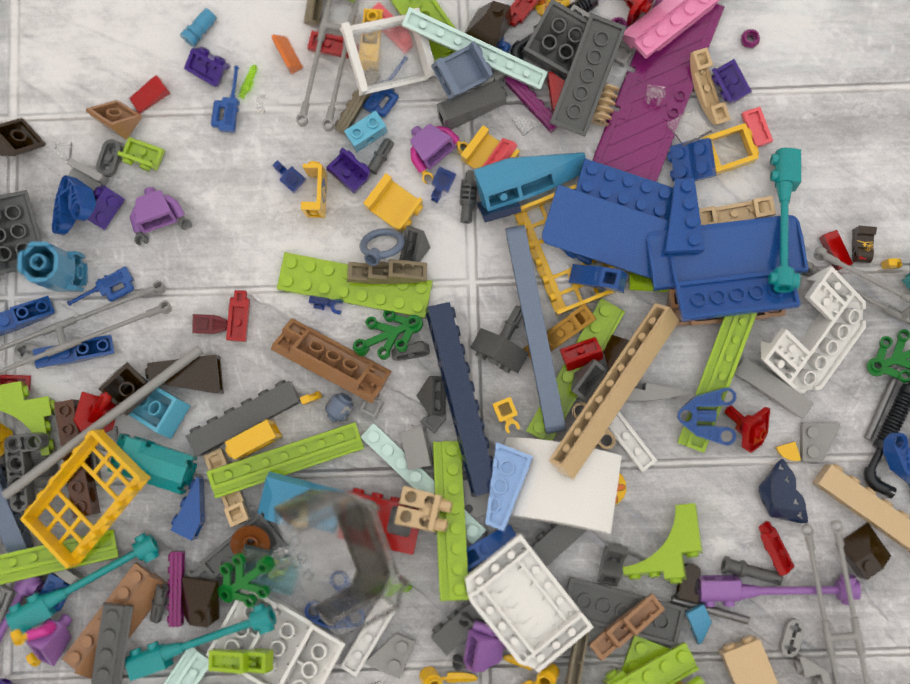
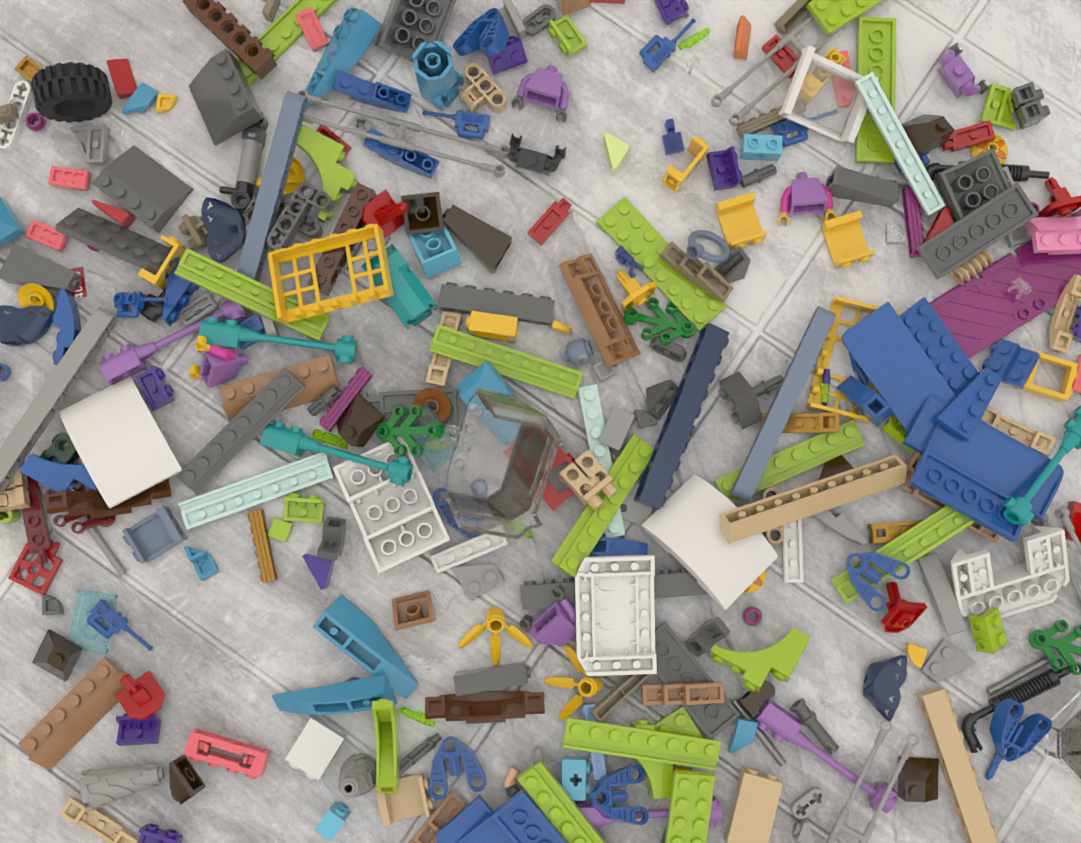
camera: 25 degrees right, 0 degrees up
(100, 256) = (475, 96): none -> tan beam
(102, 422) = (387, 224): light grey piece -> none
(184, 631) = (329, 438): none -> clear neon green axle
(189, 277) = (534, 160): none -> black torso
(192, 513) = (400, 350): blue slope -> none
(208, 324) = (522, 209): dark red plate -> none
(241, 661) = (358, 491): lime slope -> none
(251, 220) = (615, 150): none -> yellowish green slope
(352, 326) = (636, 294): none -> yellow piece
(442, 181) = (793, 232): clear blue plate -> none
(462, 70) = (877, 153): sand blue panel -> none
(468, 196) = (805, 259): dark grey hinge -> none
(498, 213) = (825, 286): dark blue tile -> none
(502, 151) = (854, 245): coral plate -> none
(505, 412) = (710, 452): yellow brick -> none
(507, 480) = (672, 507): light blue wing -> none
(524, 177) = (863, 276): dark azure wedge -> none
(558, 288) = (825, 386): none -> clear neon green piece
(581, 353) = (805, 452): red slope -> none
(588, 379) = (797, 475): dark grey slope -> none
(643, 519) = (758, 616): none -> magenta plate
(689, 127) = (1028, 334): clear piece -> none
(696, 366) = (890, 530): none -> pearl gold plate
(775, 548) = (848, 722): red hinge -> none
(832, 390) = (988, 631): none -> lime bracket

